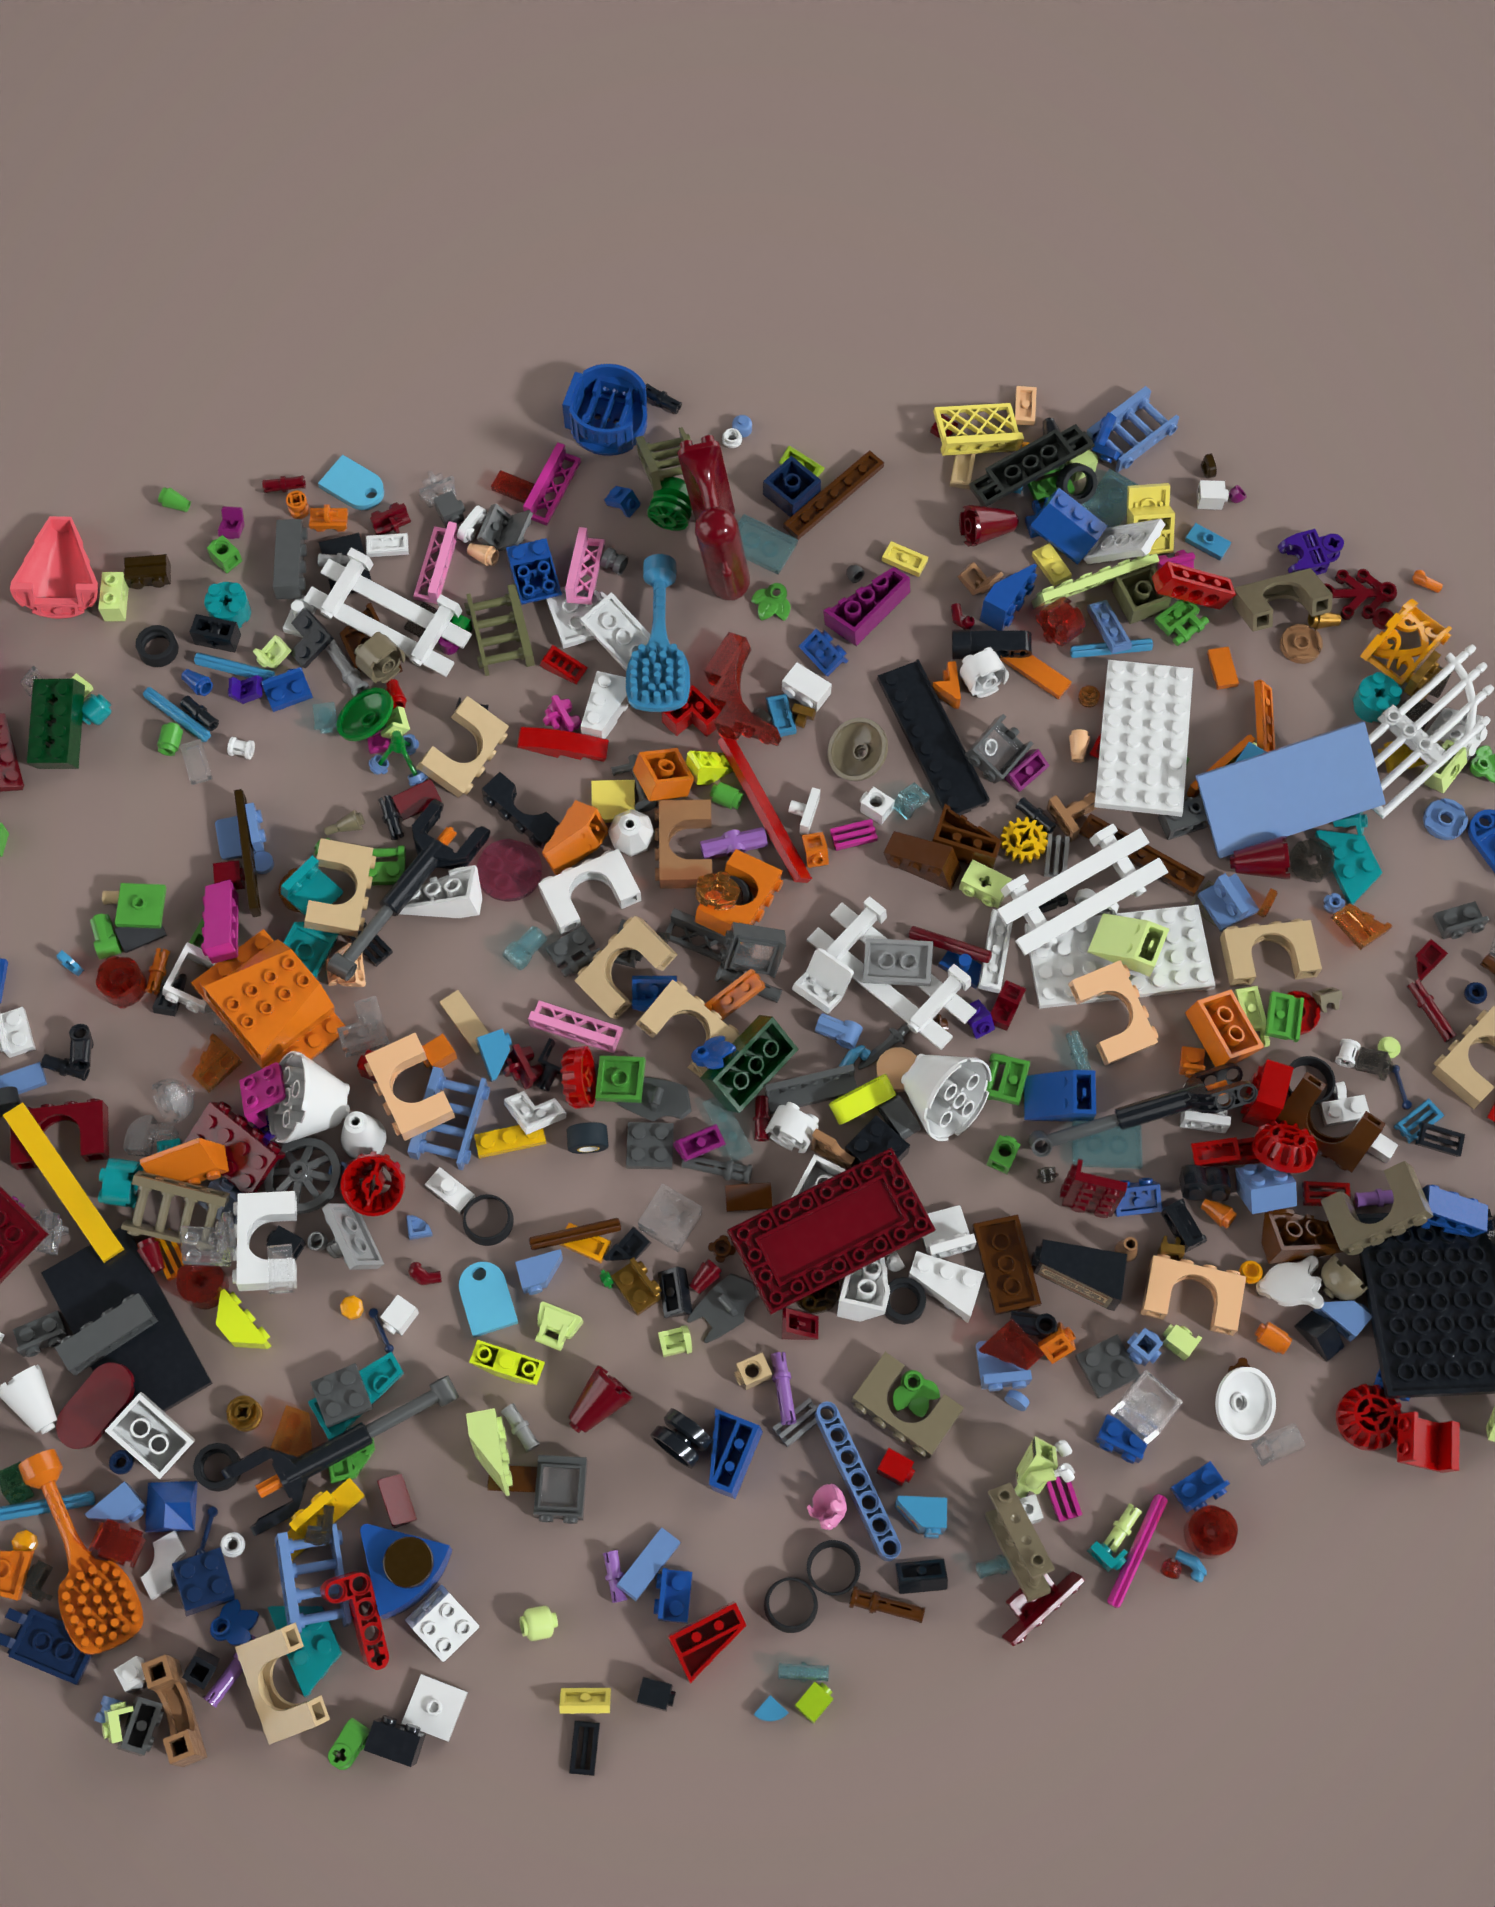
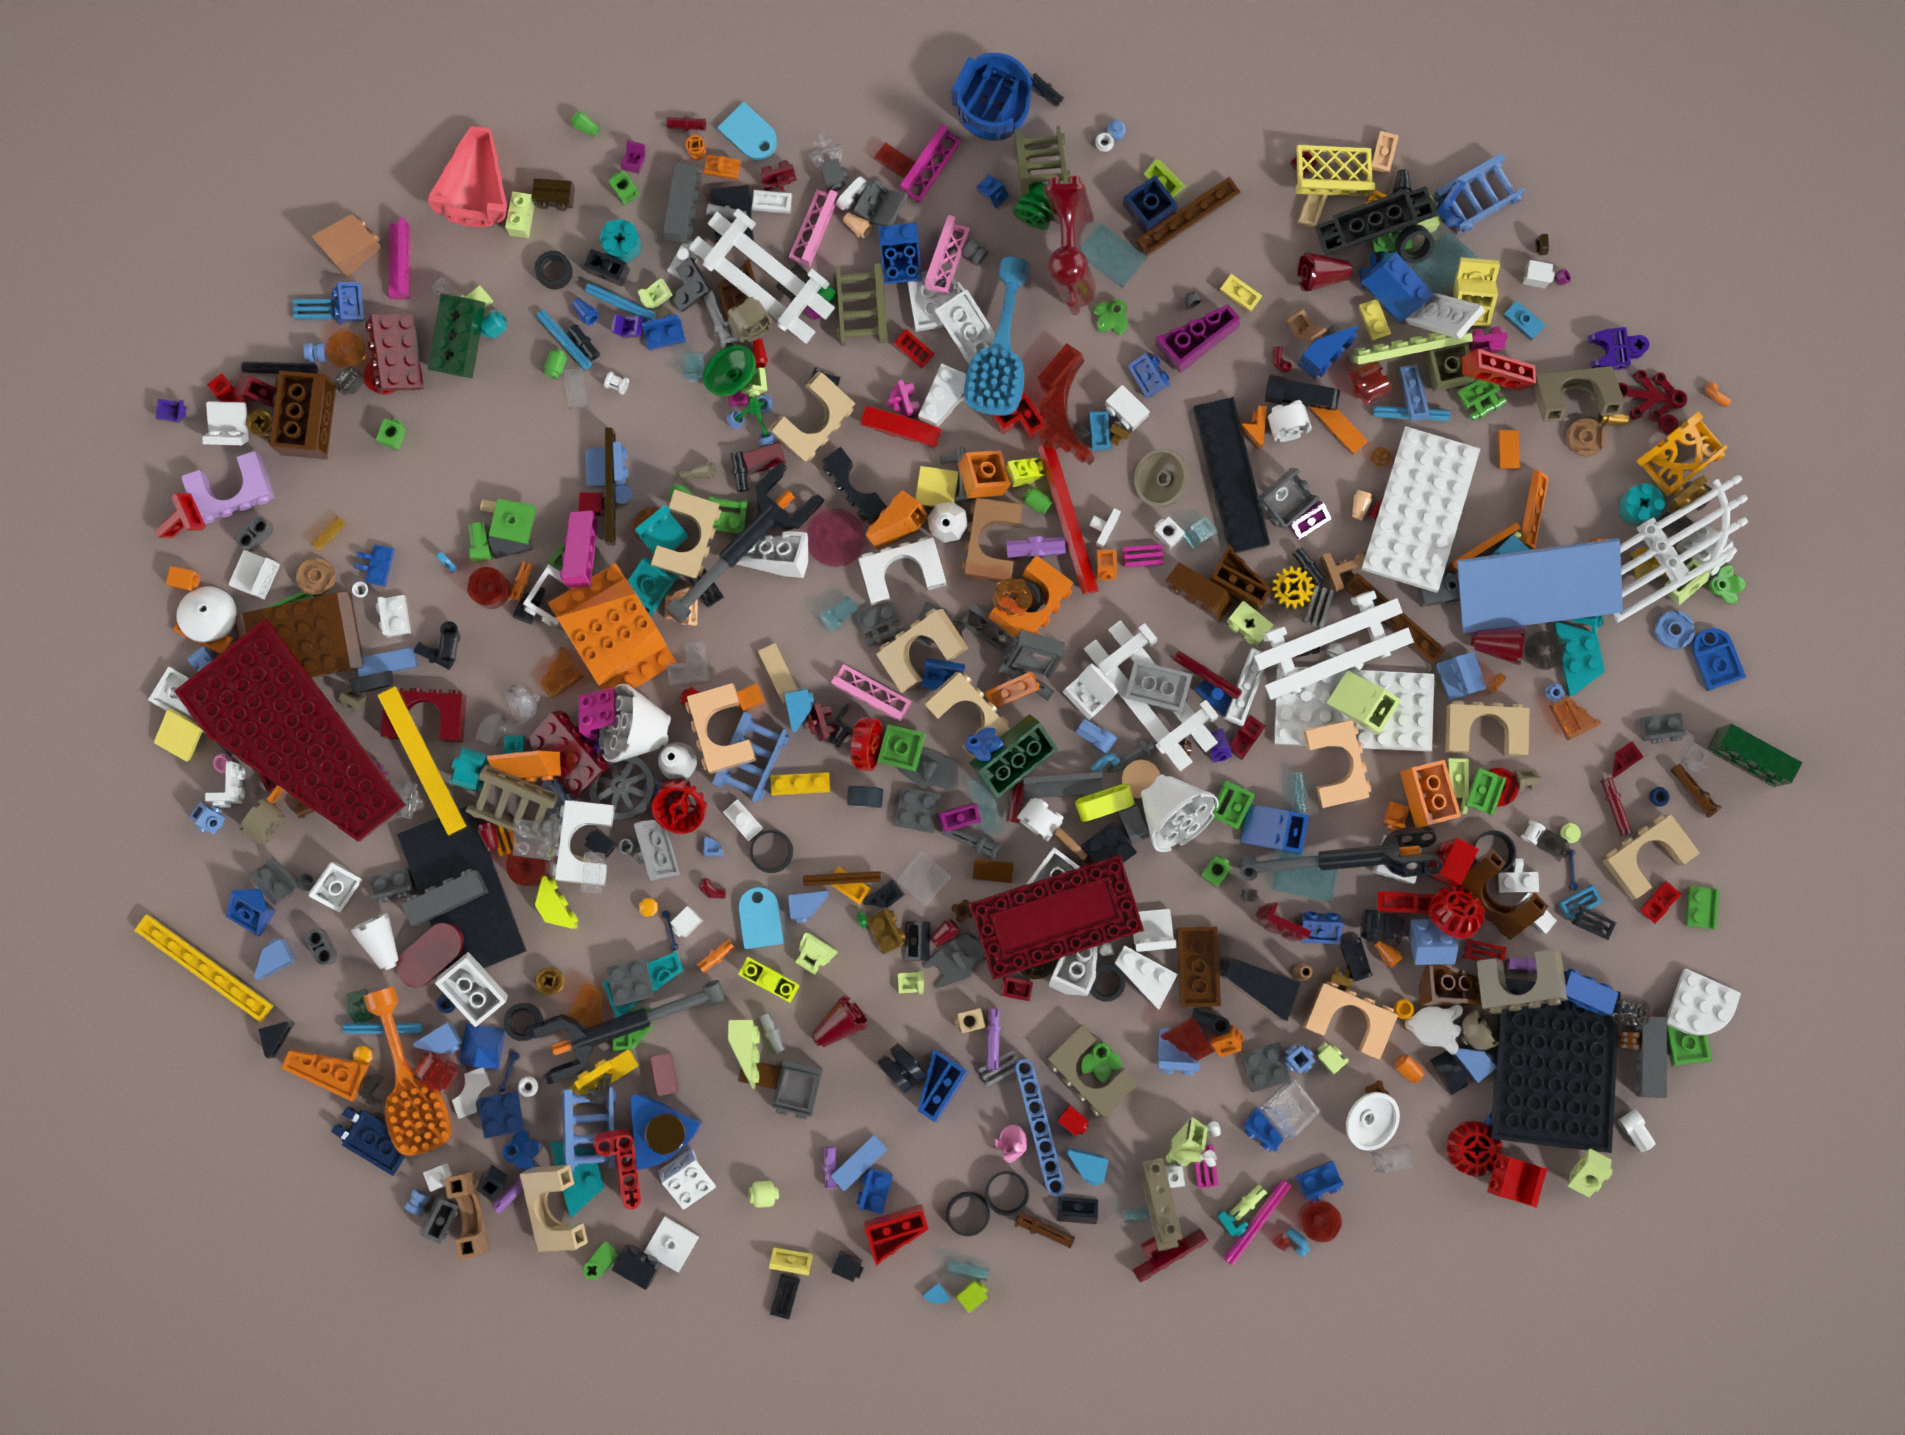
camera: 15 degrees right, 15 degrees up
(111, 1728) = (416, 1219): yellowish green bracket -> none
(440, 1349) = (716, 956): none -> orange pin
(533, 1117) = (821, 769): white tile -> none
(1017, 1400) = (1184, 1083): medium blue tile -> none

